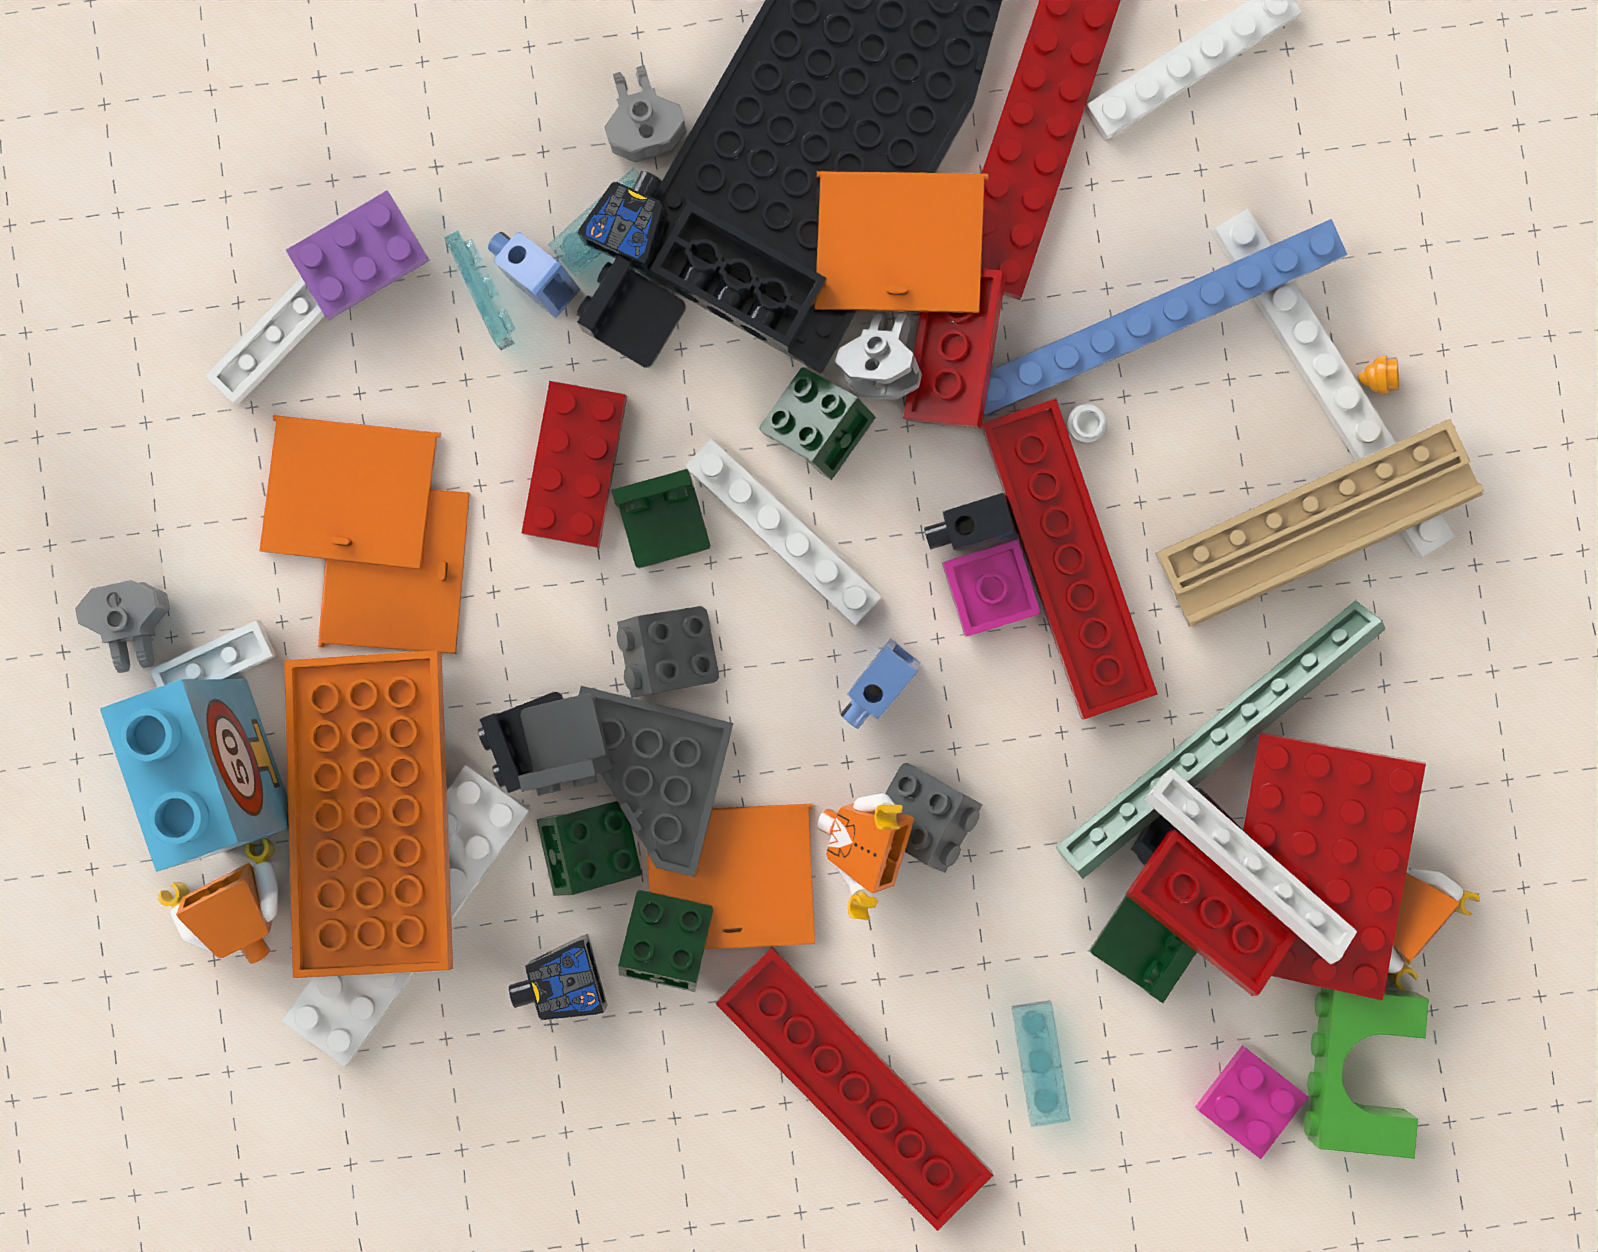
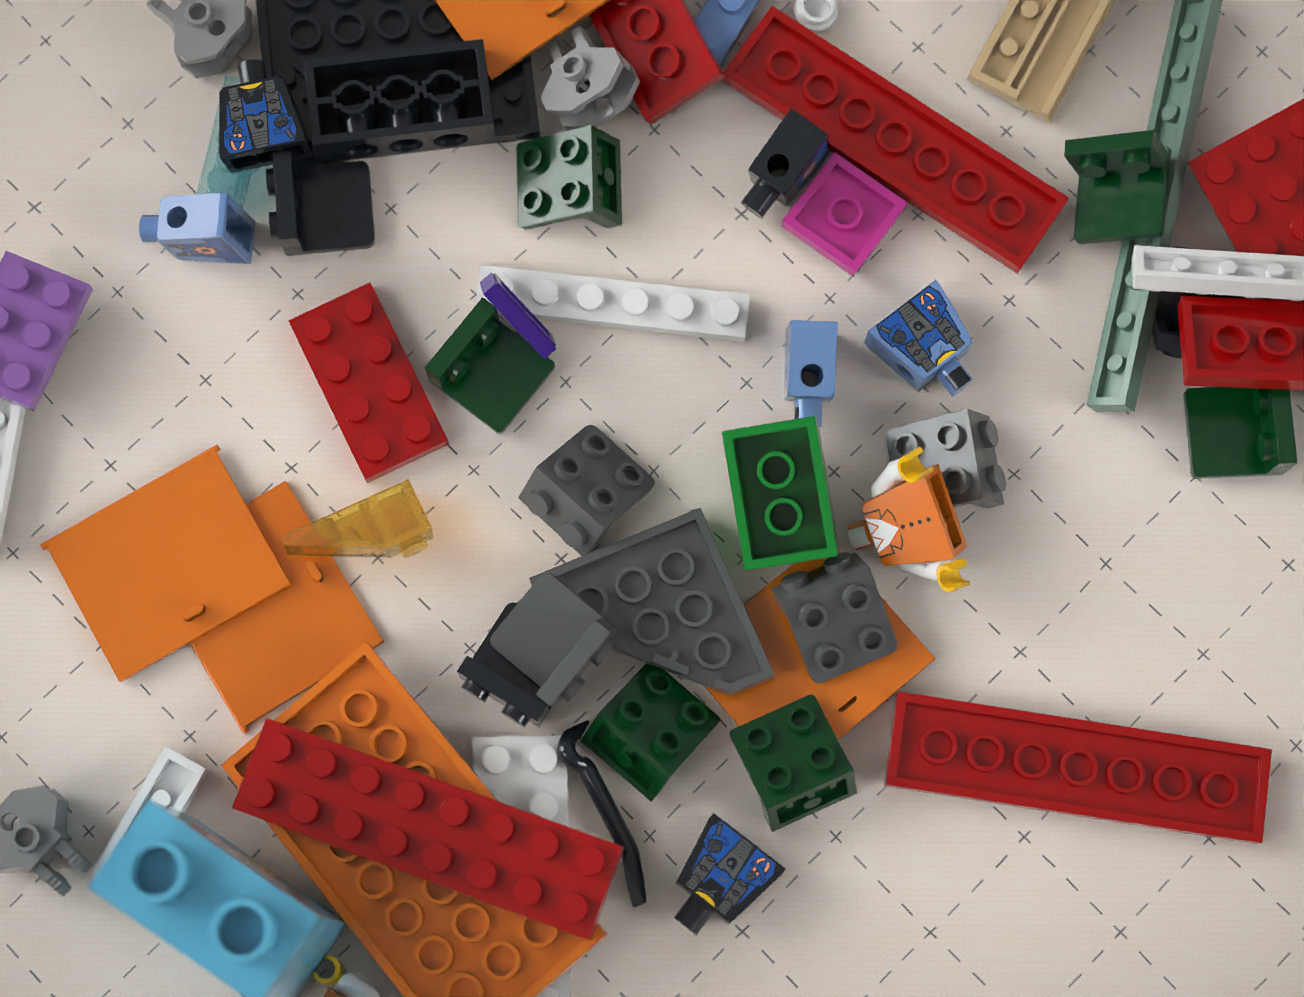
camera: 40 degrees left, 10 degrees down
(384, 810) = (429, 828): none -> red plate
(482, 289) = (161, 282): clear light blue plate -> none
(503, 573) = (373, 527): none -> clear yellow slope
(520, 878) = (607, 809): none -> black piece
(706, 496) = (518, 315): none -> dark purple tile
(767, 866) = (836, 616): none -> dark grey bracket
(791, 757) = (780, 493): none -> green brick
(977, 721) = (924, 341): none -> torso
(1040, 1063) = (1231, 613): clear light blue plate -> none
(1197, 716) = (1119, 186): none -> dark green bracket

